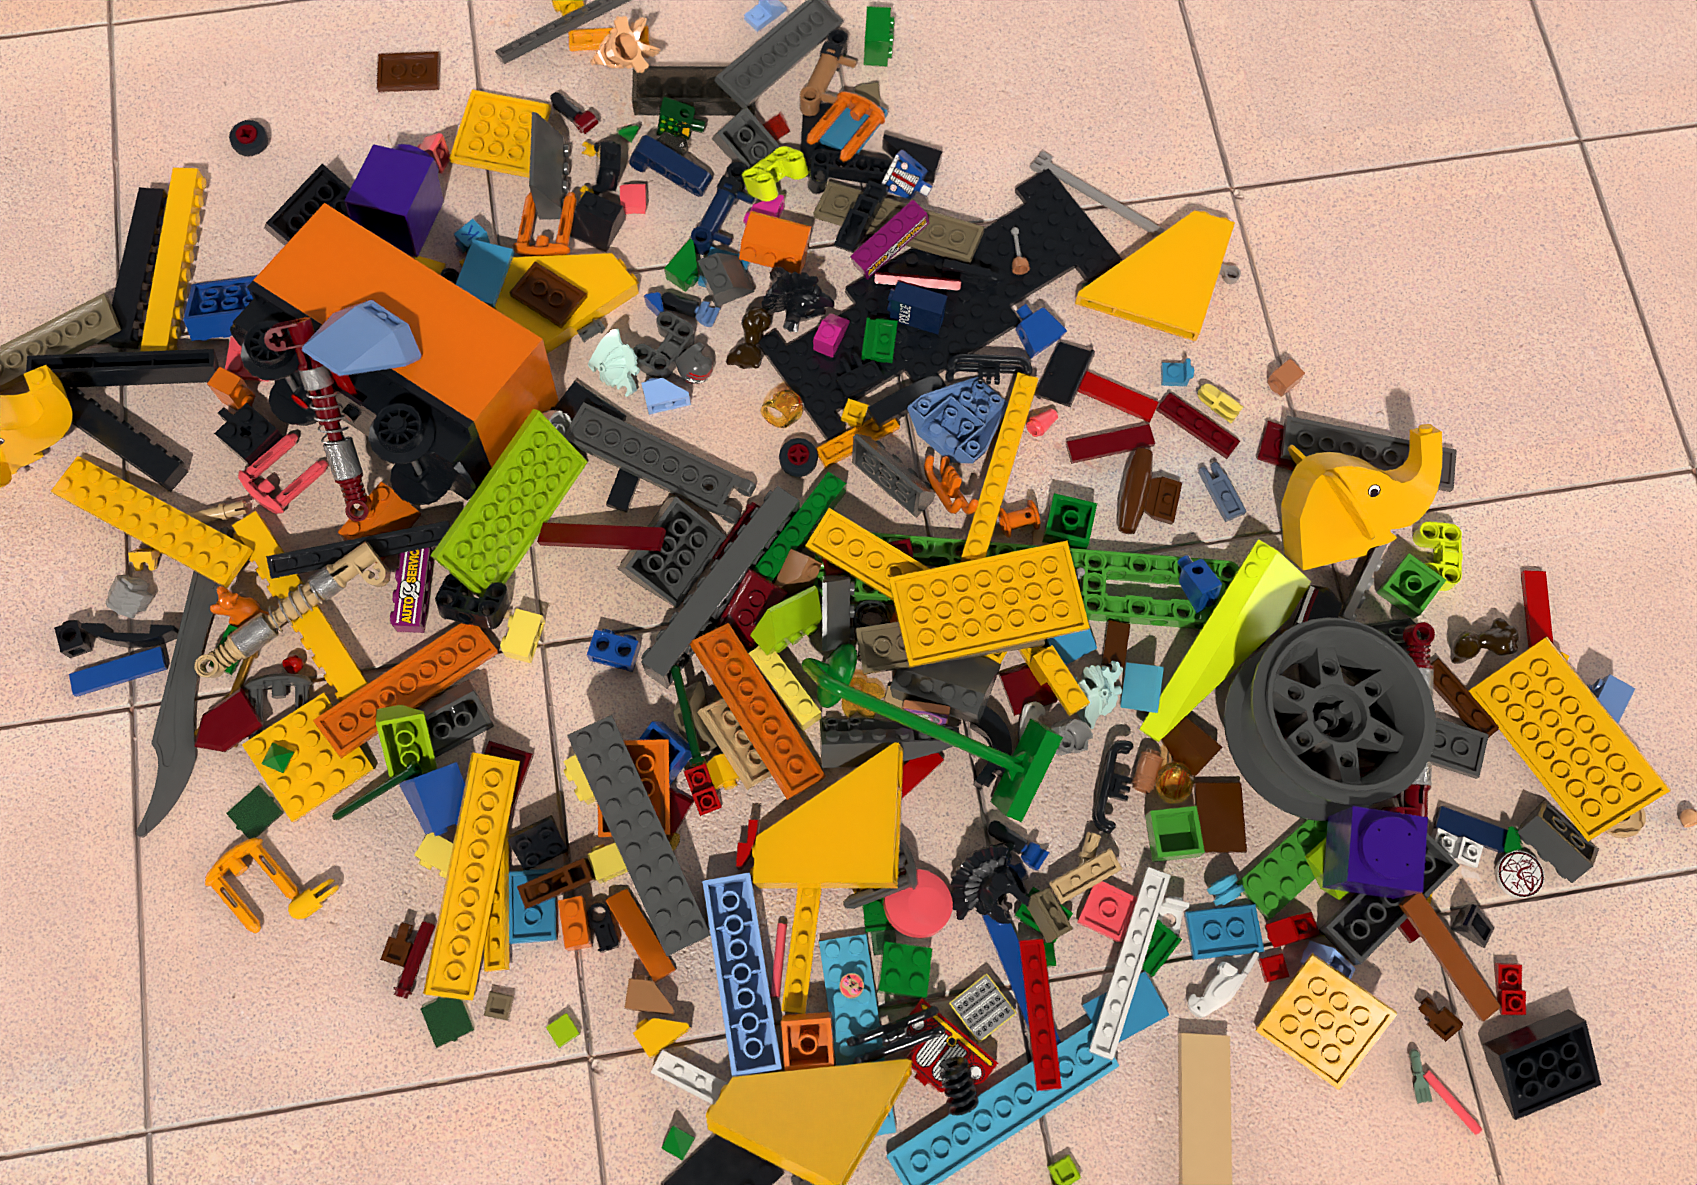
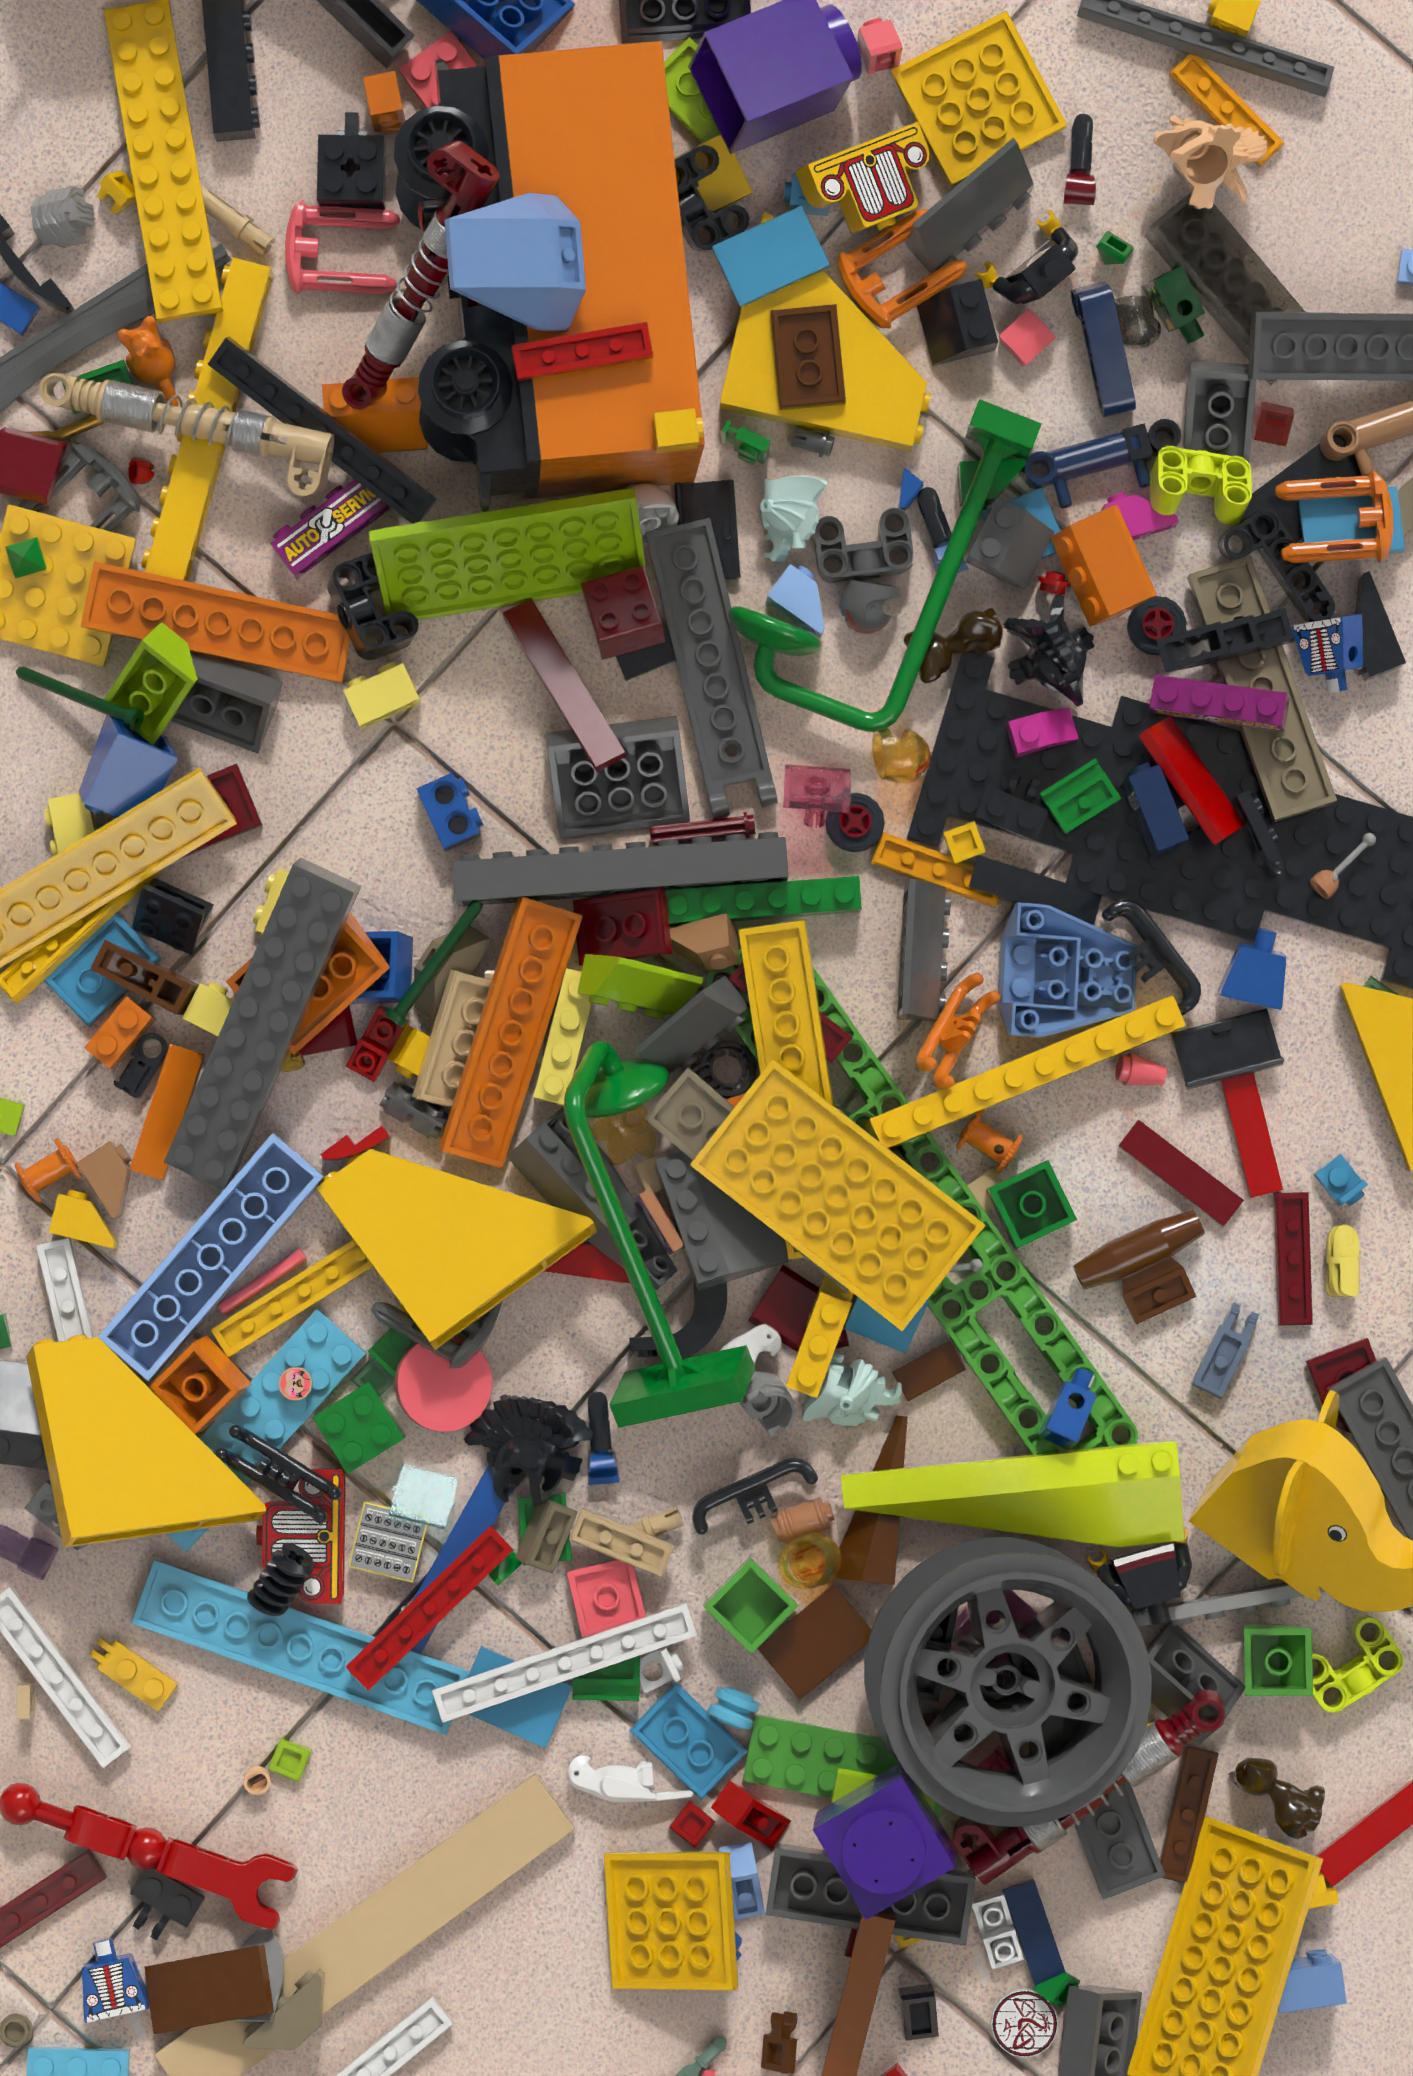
camera: 45 degrees right, 15 degrees up
(437, 355) = (582, 351): none -> red plate
(489, 203) = (868, 178): none -> brick
(522, 342) = (677, 430): none -> yellow brick
(563, 356) = (748, 444): none -> green plate
(591, 479) = (623, 612): none -> dark red piece
(614, 1029) = (47, 1170): none -> orange hose
(666, 233) = (1000, 435): none -> green piece
(762, 275) = (1054, 582): none -> red plate
(763, 794) = (427, 1116): none -> flat silver hinge
(766, 460) = (817, 791): none -> clear pink tile
(818, 242) = (1161, 615): none -> black wheel
(972, 967) = (423, 1496): none -> clear light blue piece
(1142, 687) = (891, 1441): medium azure tile -> none

